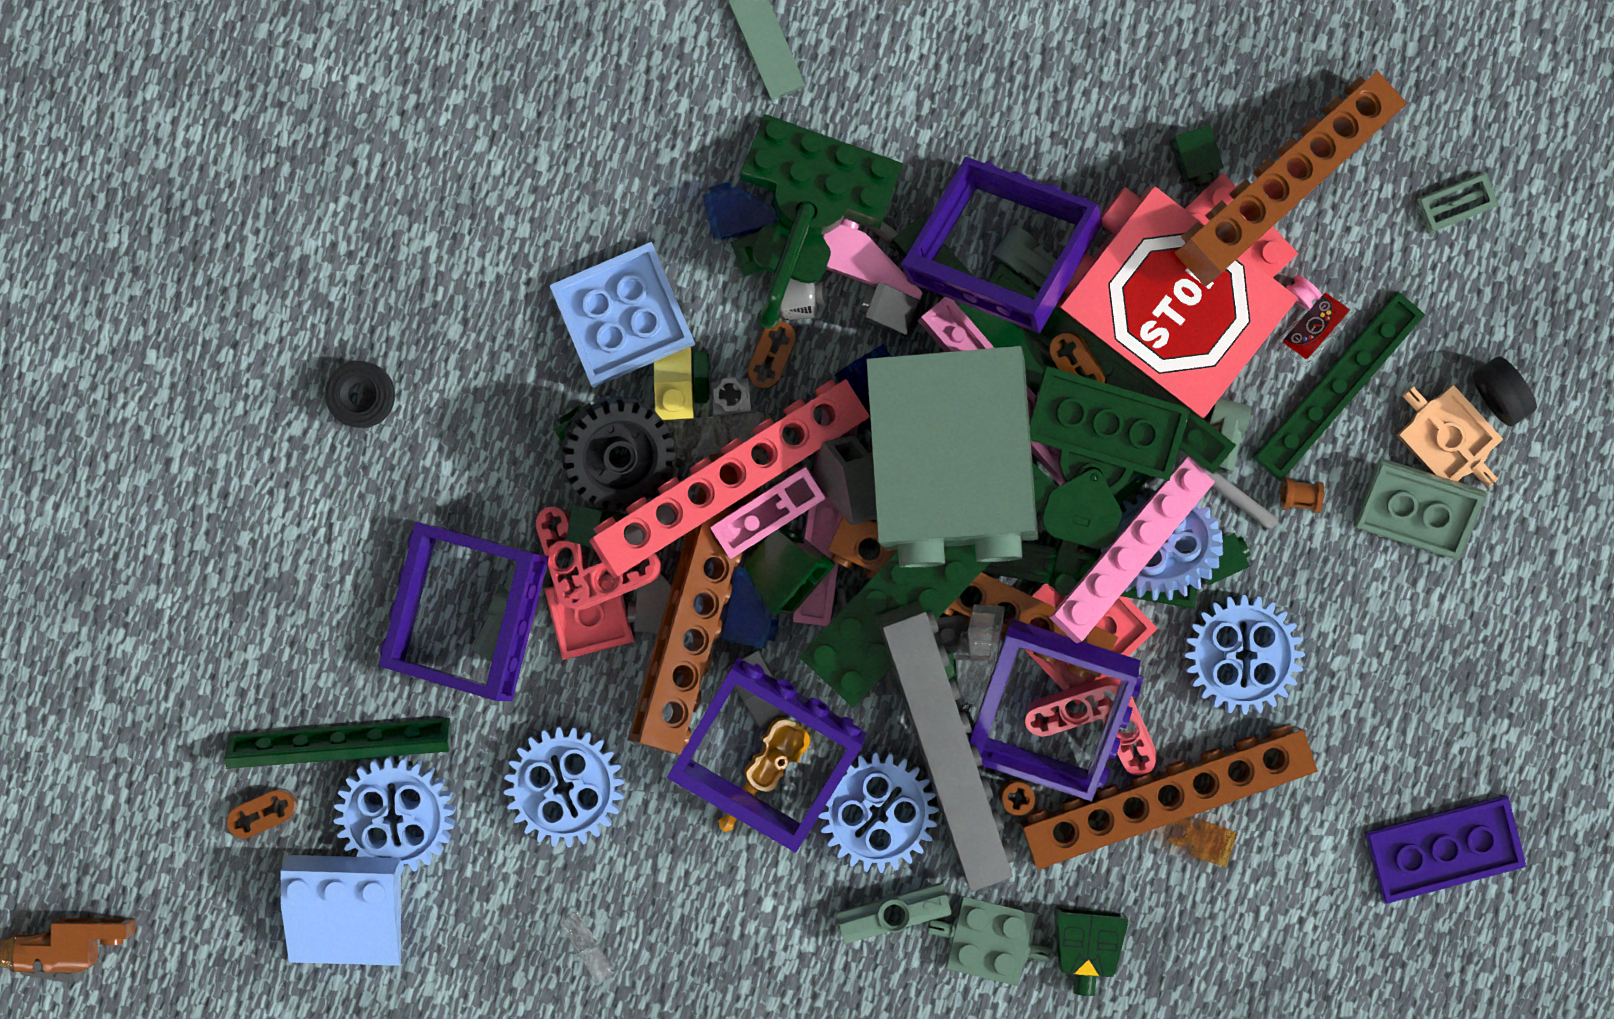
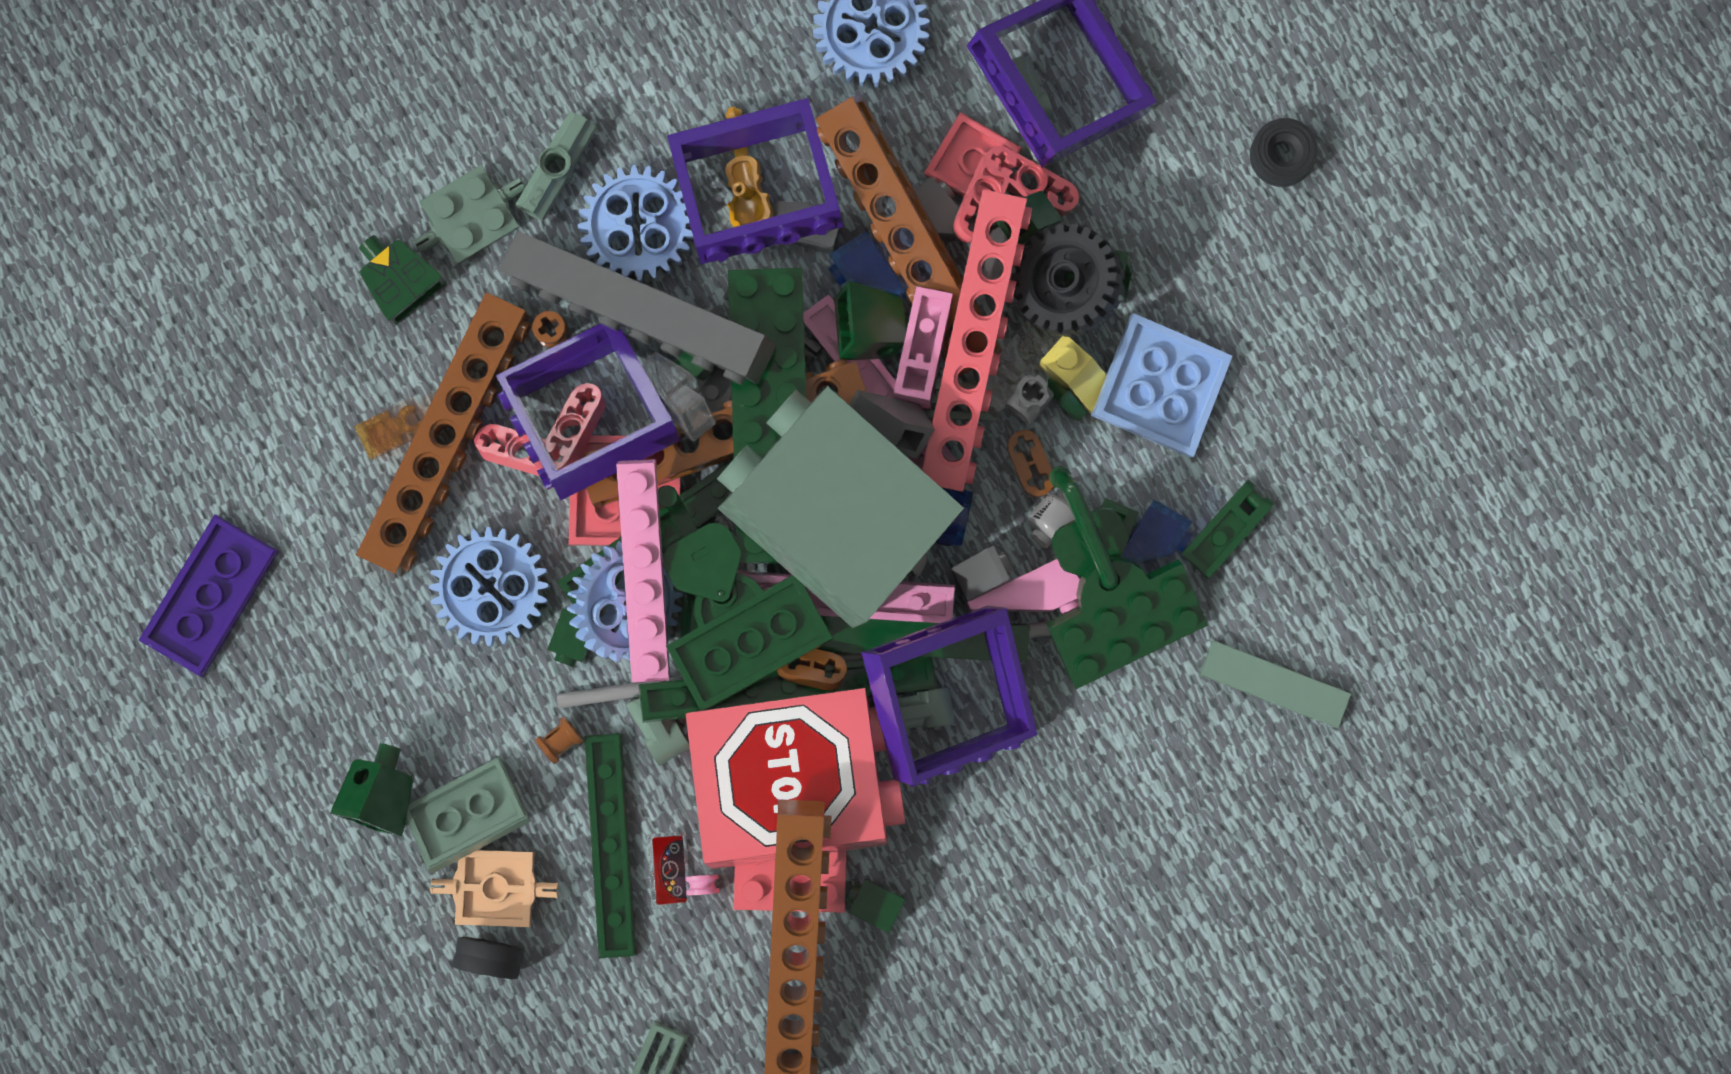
camera: 135 degrees right, 5 degrees down
(680, 166) = (1226, 530): none -> dark green plate
(1470, 586) = (375, 793): none -> dark green torso

